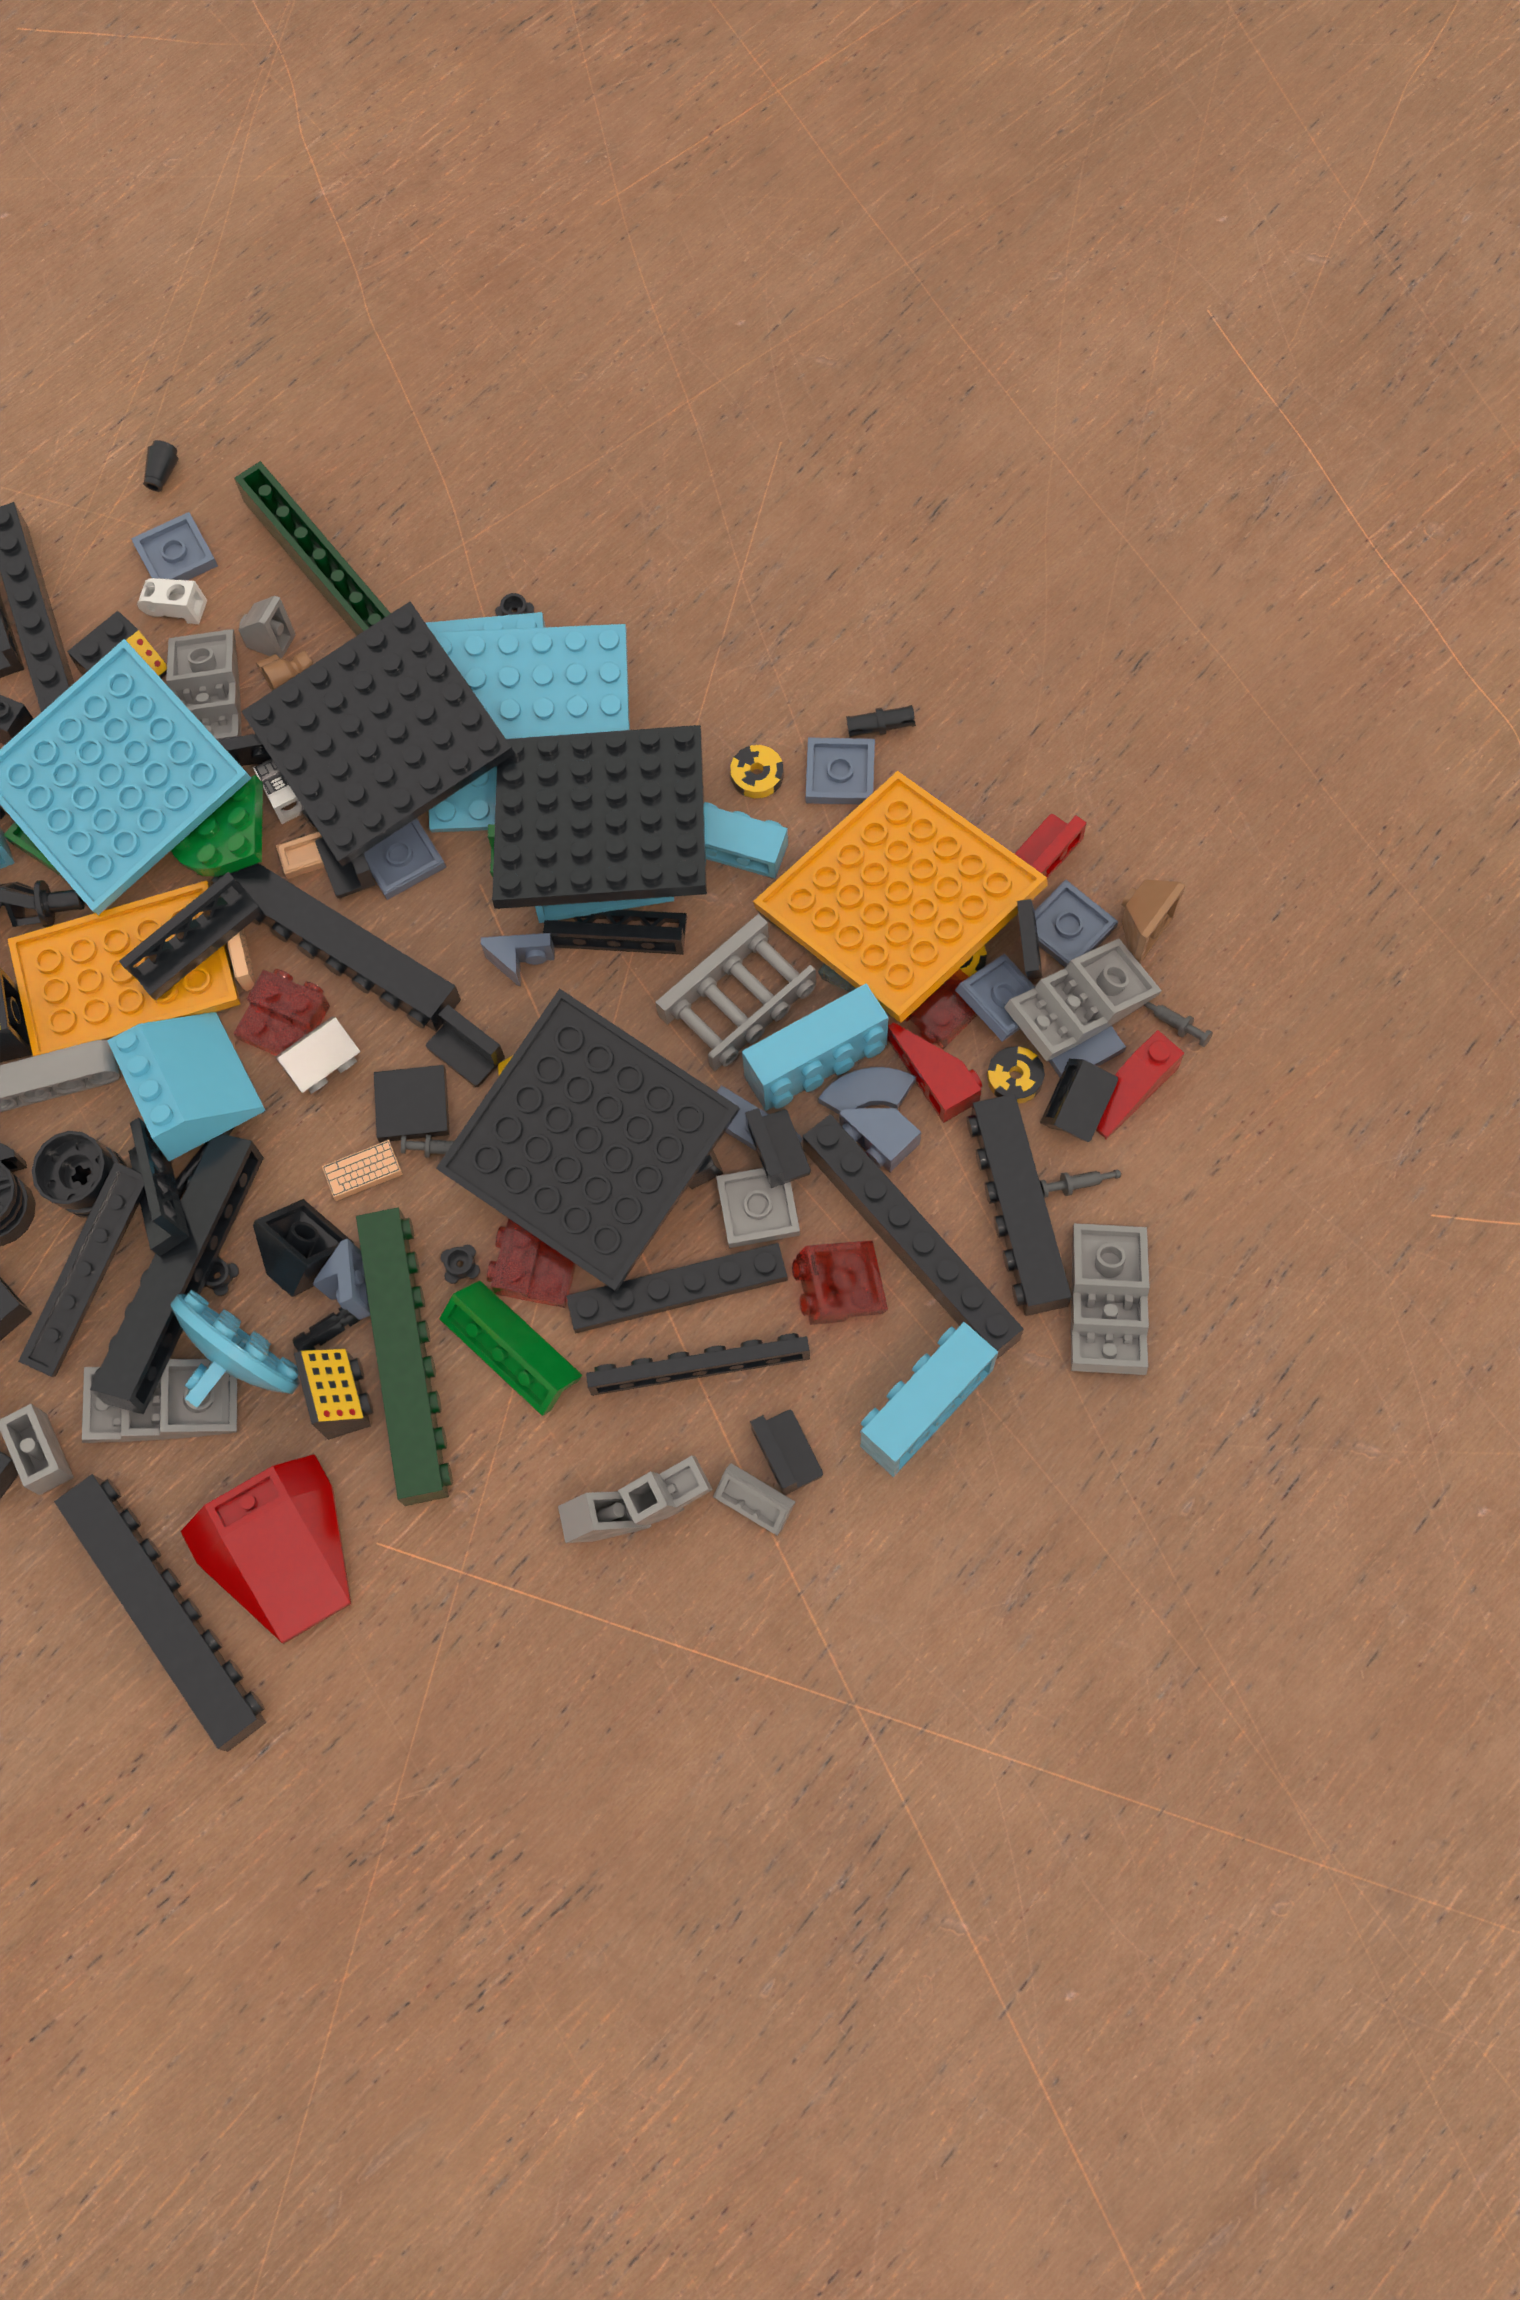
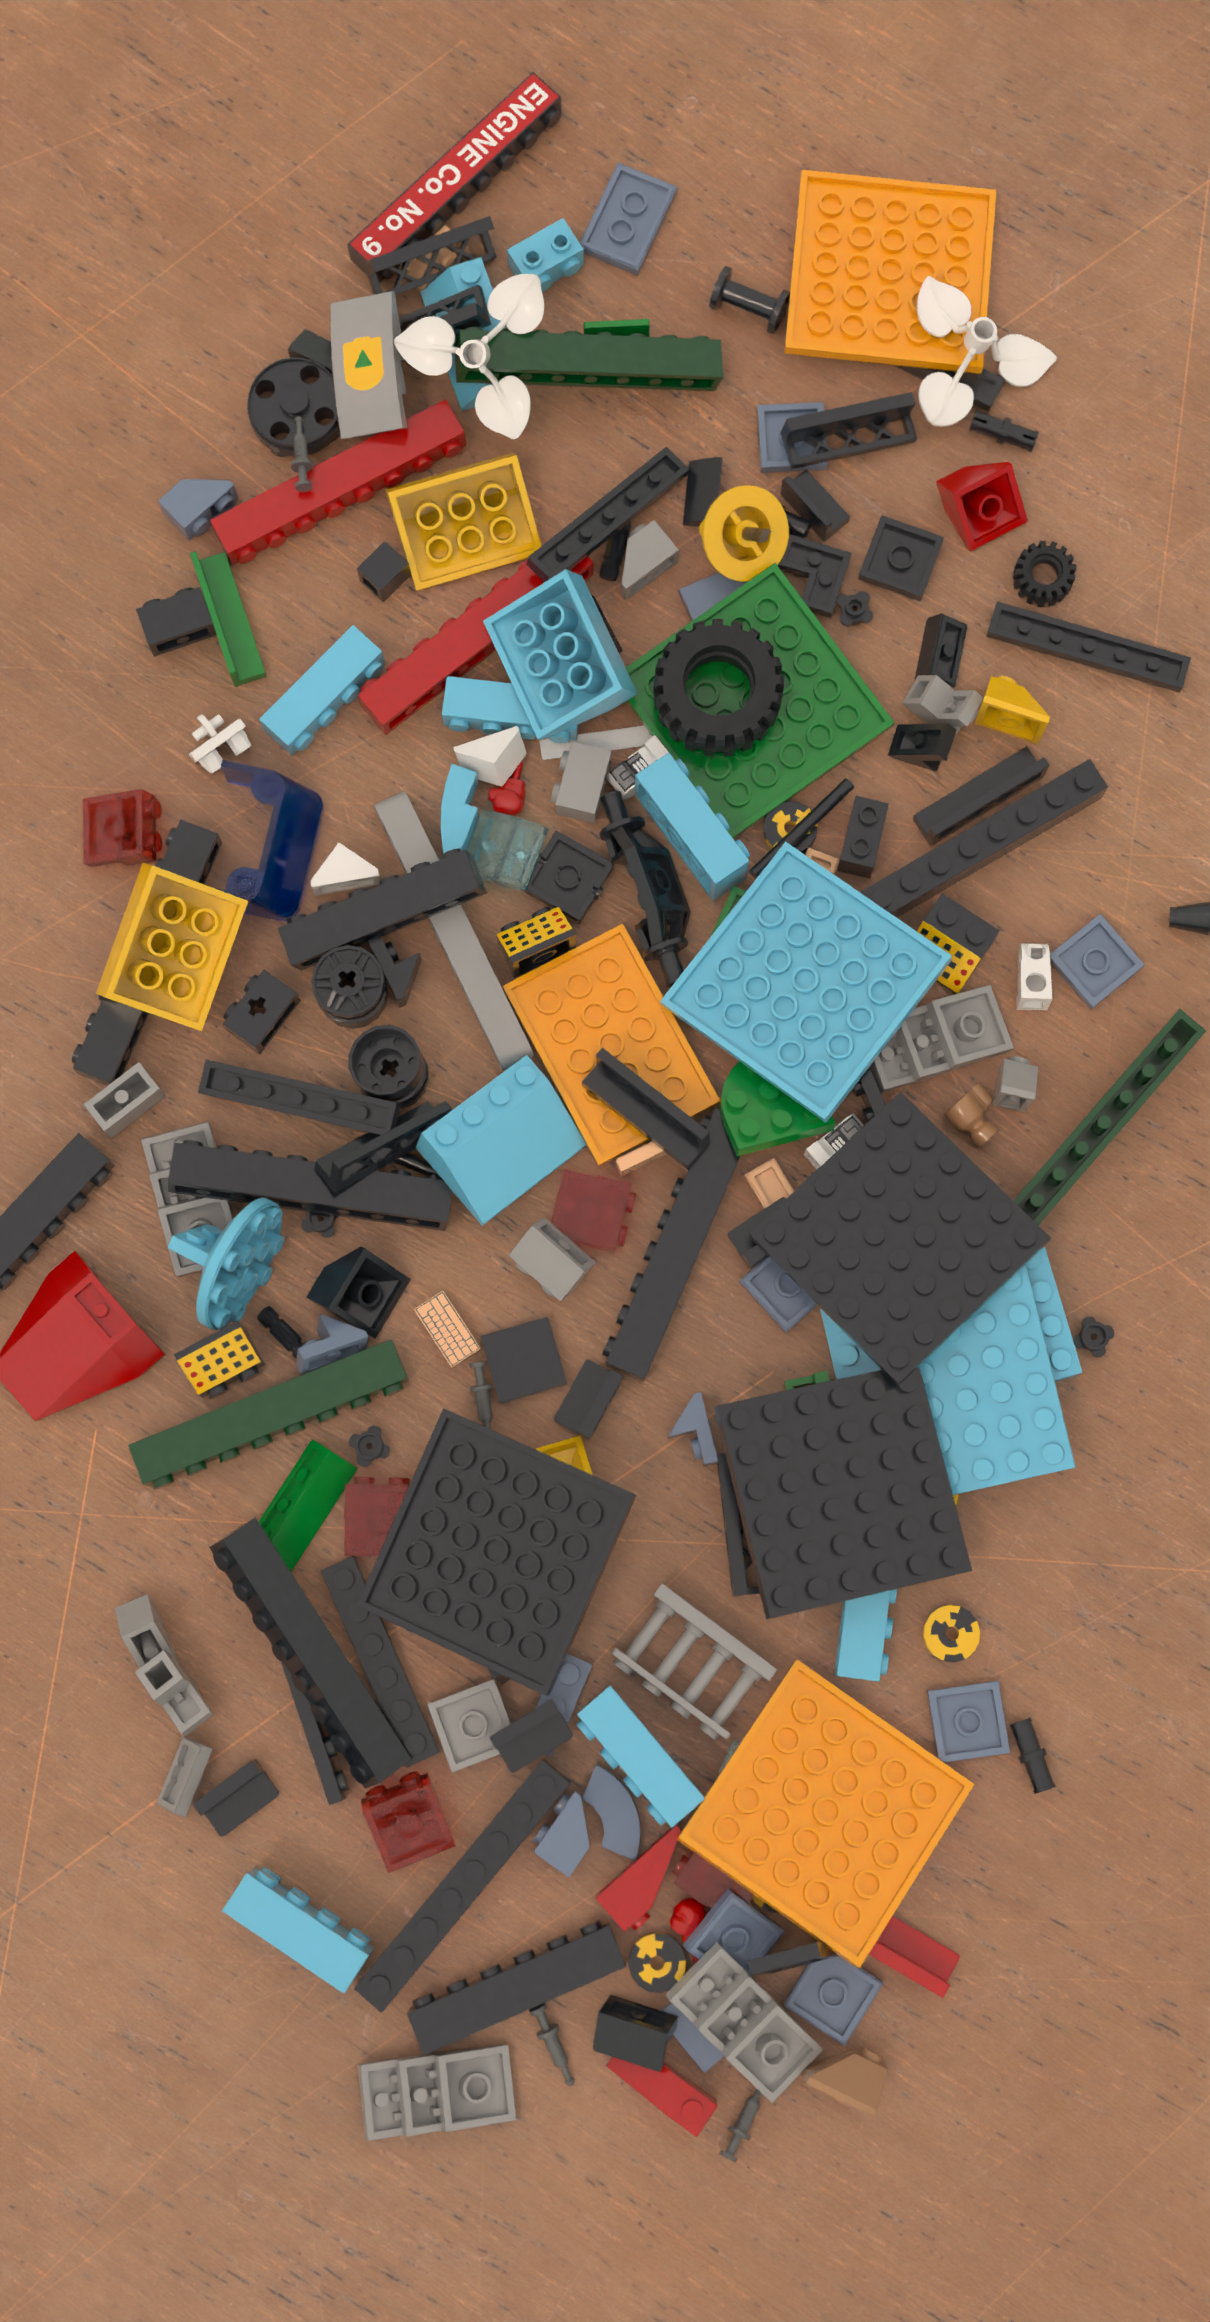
camera: 75 degrees right, 10 degrees up
(650, 1342) = (309, 1654): none -> black brick
(979, 1036) = (687, 1917): none -> red piece

